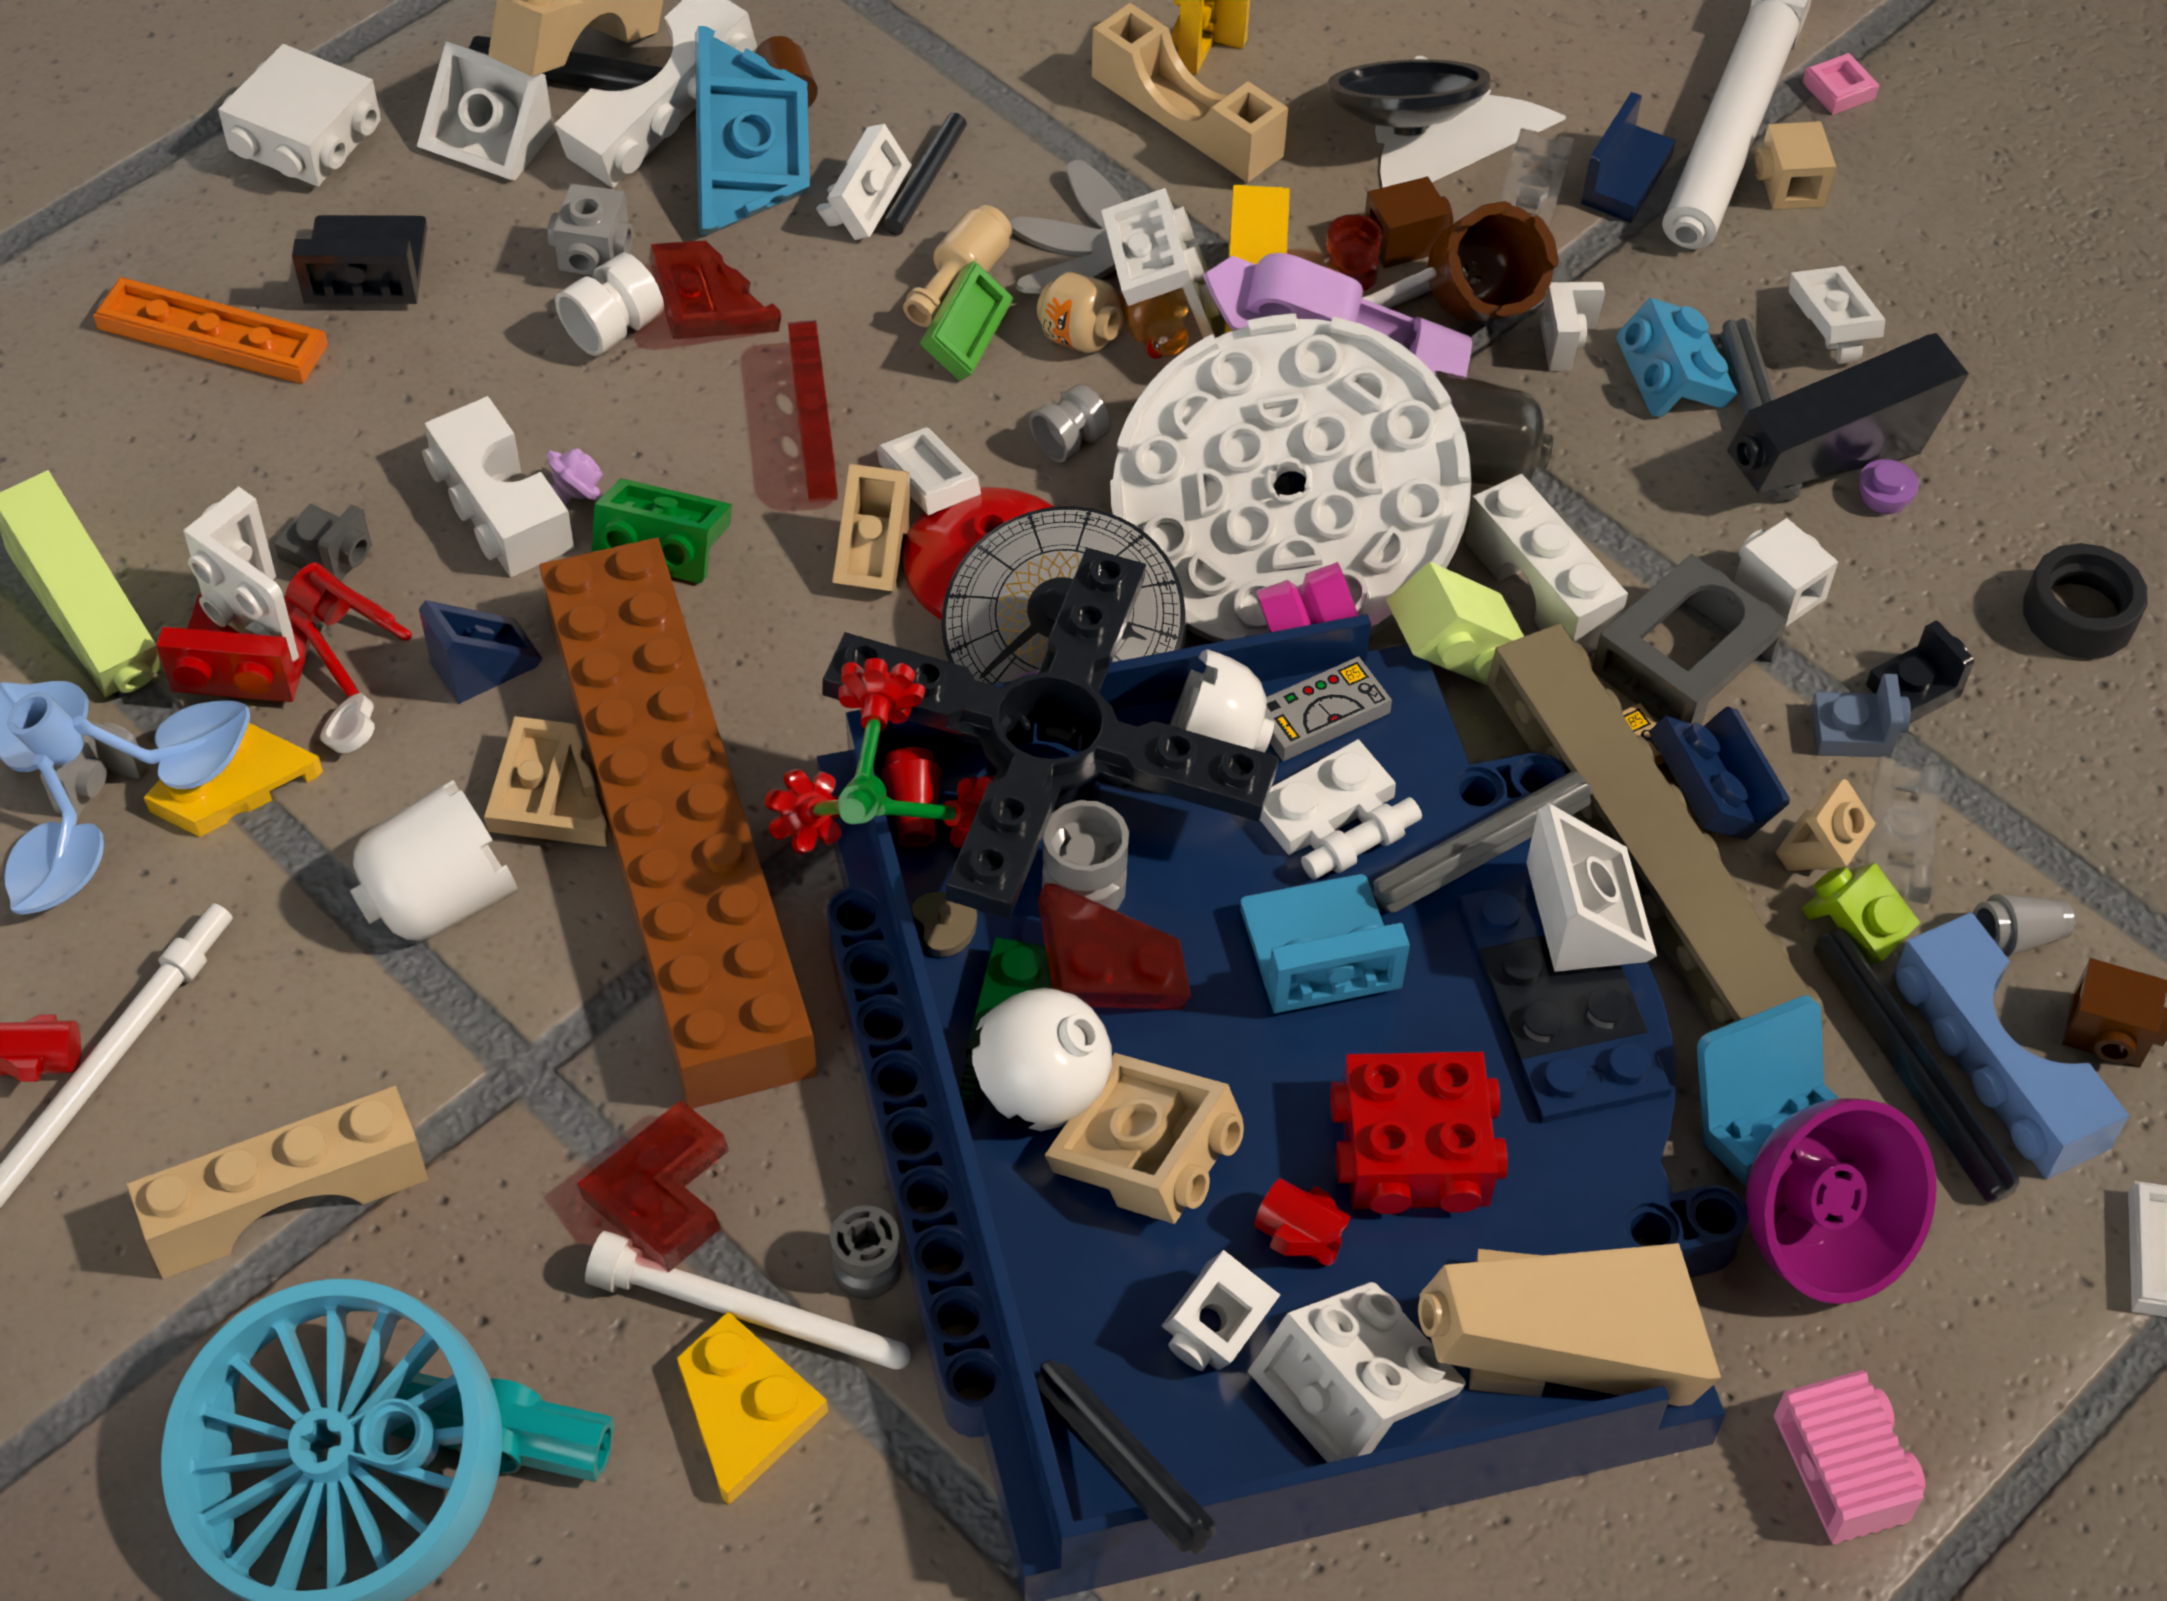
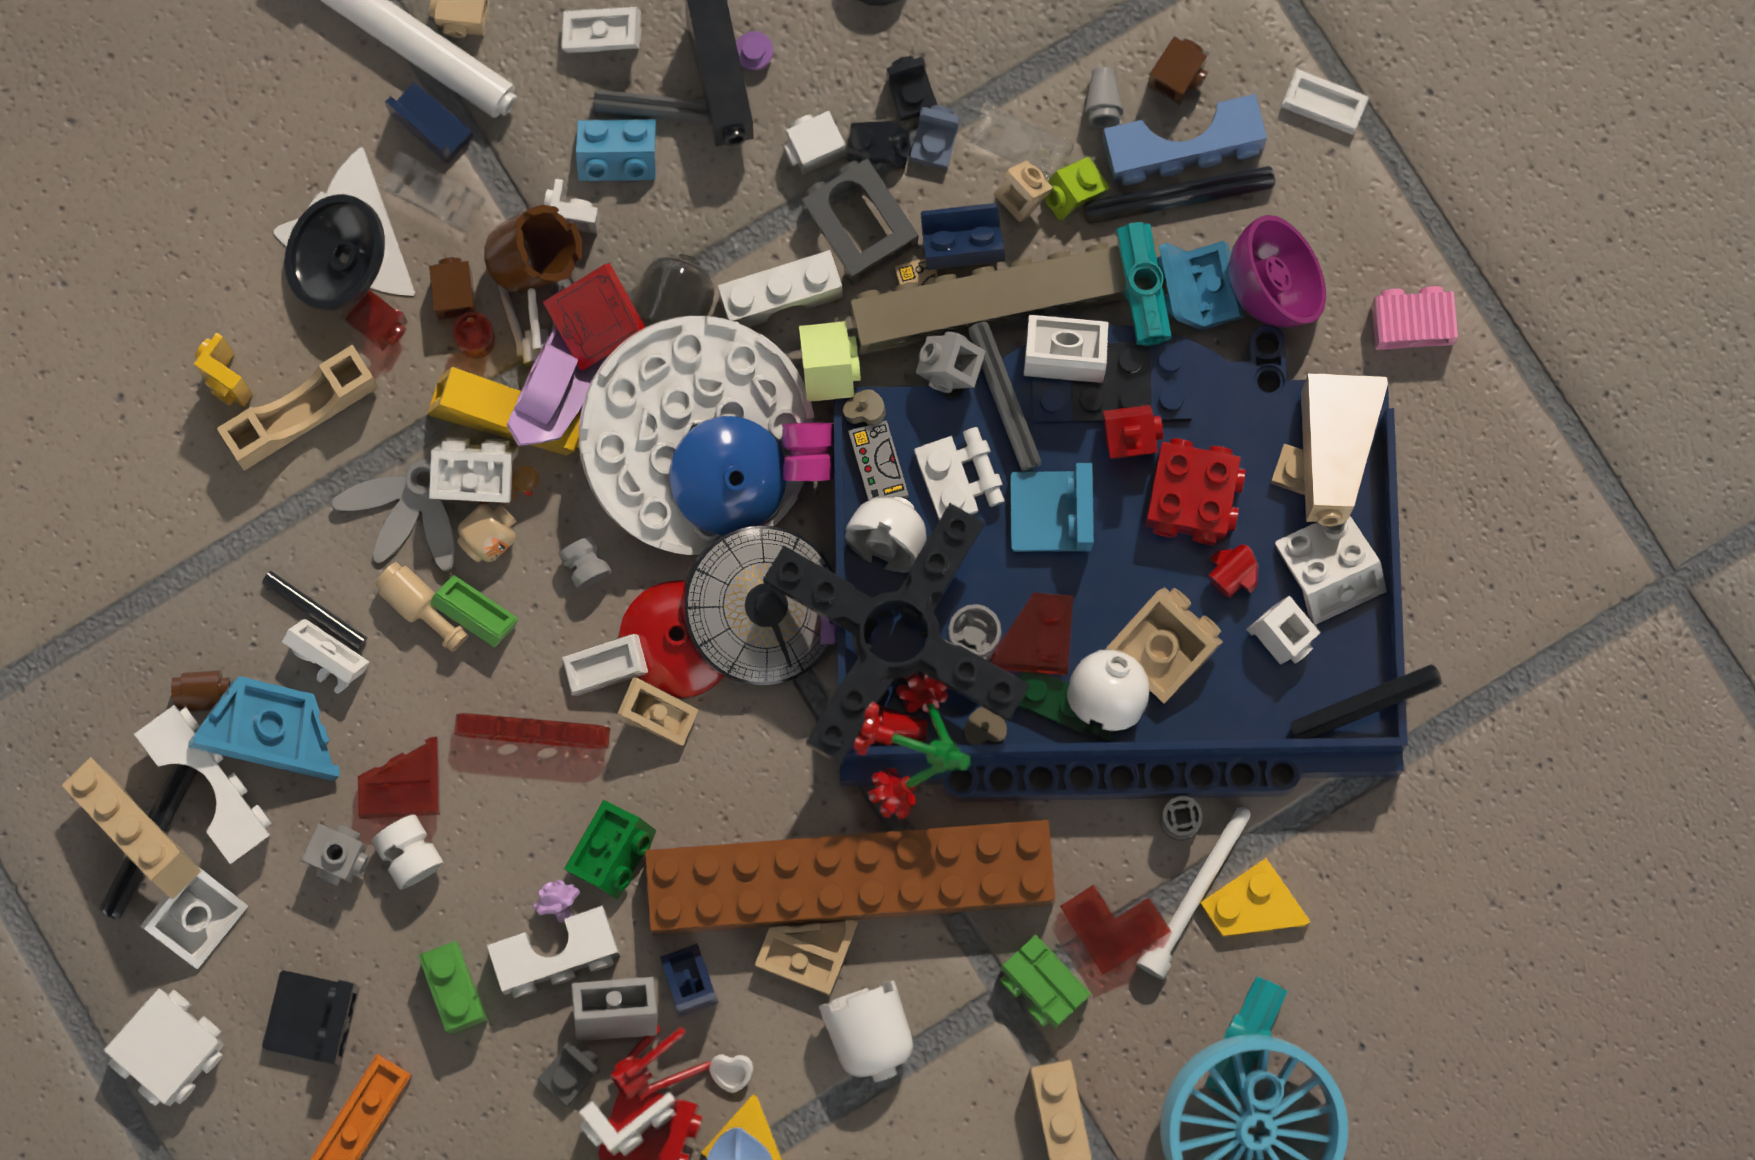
camera: 75 degrees left, 25 degrees up
(418, 552) = (614, 1009): none -> light grey brick
(424, 382) = (452, 987): none -> bright green brick
(549, 1103) = (1044, 983): none -> bright green brick
(1280, 539) = (702, 472): none -> blue dish
(1336, 164) = (377, 321): none -> clear red bracket
(1401, 672) = (865, 407): none -> dark tan piece
(1435, 321) = (594, 316): none -> red tile
(1486, 1014) = (1132, 431): none -> red brick
(1532, 752) = (950, 362): none -> light grey brick
(1706, 1001) = (1146, 306): none -> teal piece
(1821, 653) = (879, 143): none -> black bracket

